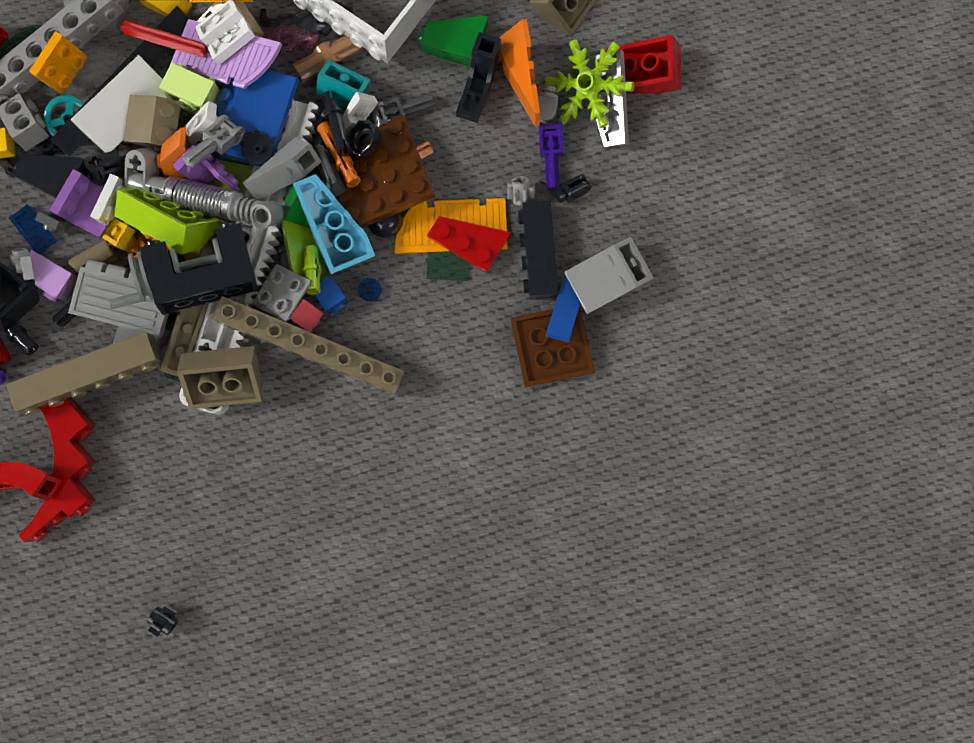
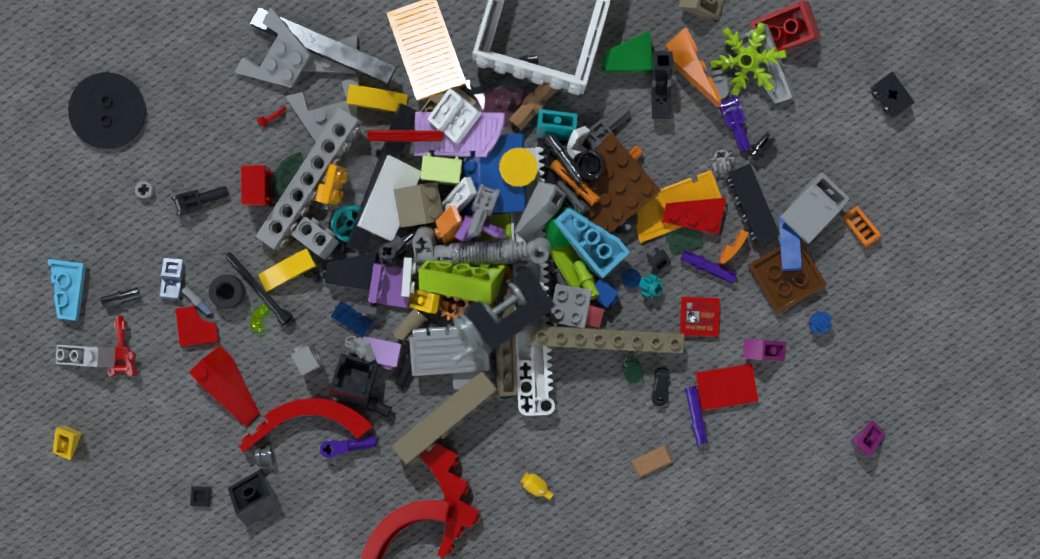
camera: 20 degrees left, 5 degrees up
(169, 494) = (536, 485): none -> yellow plant
(220, 377) = (548, 385): dark tan slope -> none
(257, 147) = (513, 200): black piece -> none
(277, 112) = (518, 167): none -> yellow tile
(319, 512) = (652, 461): none -> medium nougat tile
(332, 394) = (632, 368): none -> clear green arm
(358, 430) = (660, 388): none -> black piece
(388, 305) = (651, 286): none -> teal gear
(389, 474) = (698, 423): none -> dark purple pin
(407, 279) = (659, 260): none -> black tile
(433, 360) = (699, 316): none -> red tile
(436, 453) = (726, 386): none -> red tile
(467, 309) = (714, 269): none -> dark purple pin
(494, 296) = (729, 251): none -> orange slope
(495, 424) = (764, 349): none -> magenta slope
(572, 413) = (820, 322): none -> blue gear
(585, 571) = (868, 438): none -> magenta slope
(663, 339) = (861, 237): none -> orange slope
(745, 168) = (900, 100): none -> black brick

